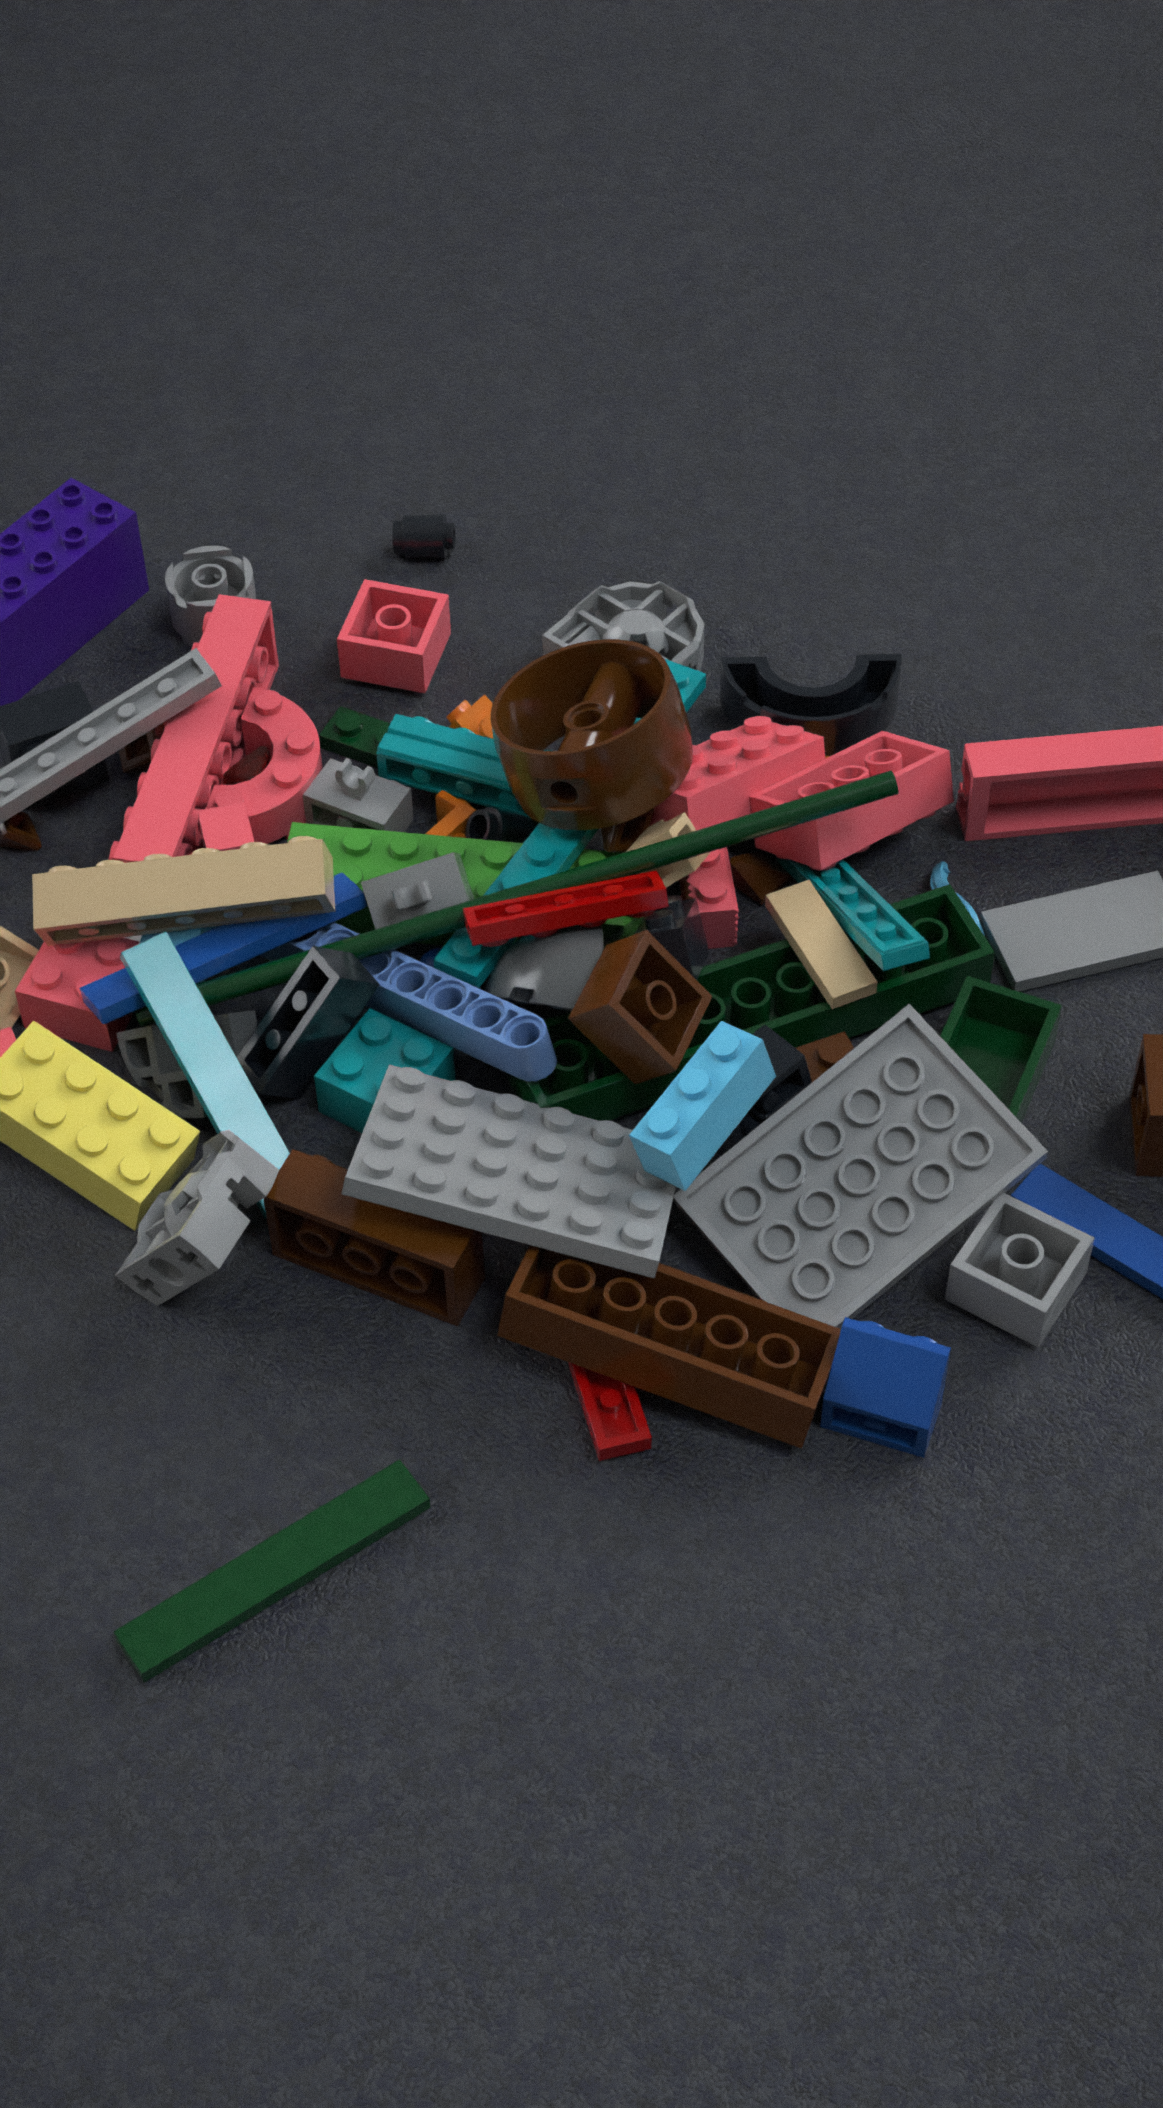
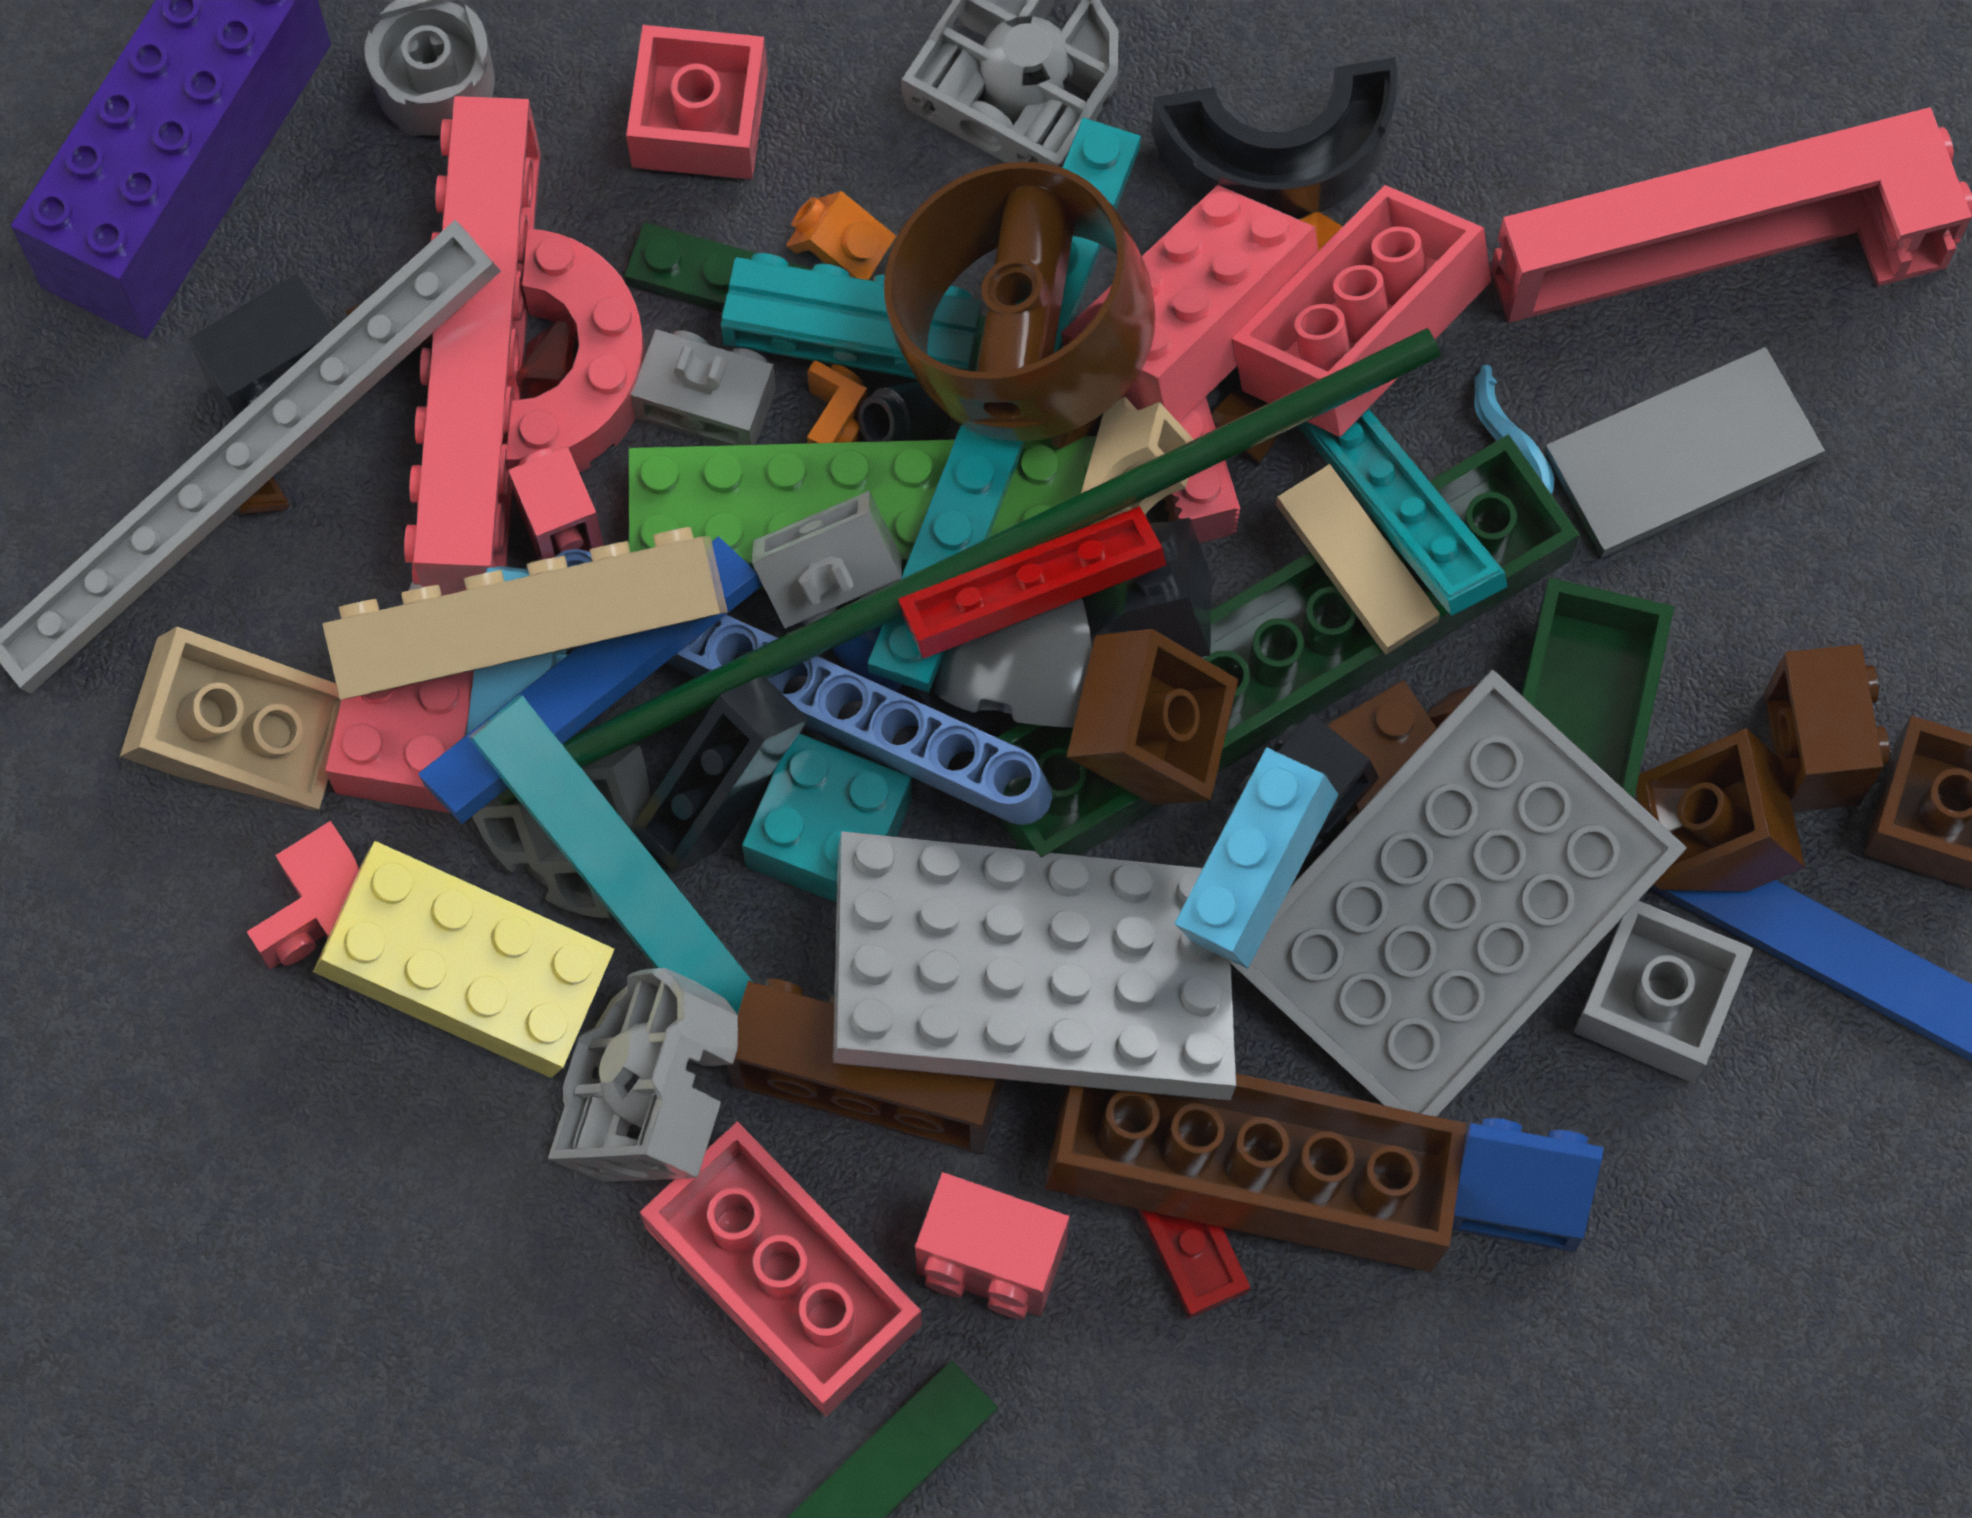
camera: 10 degrees left, 20 degrees up
(278, 1370) = (782, 1269): none -> coral brick
(446, 1371) = (990, 1247): none -> coral brick
(1089, 1160) = (1728, 811): none -> reddish brown slope

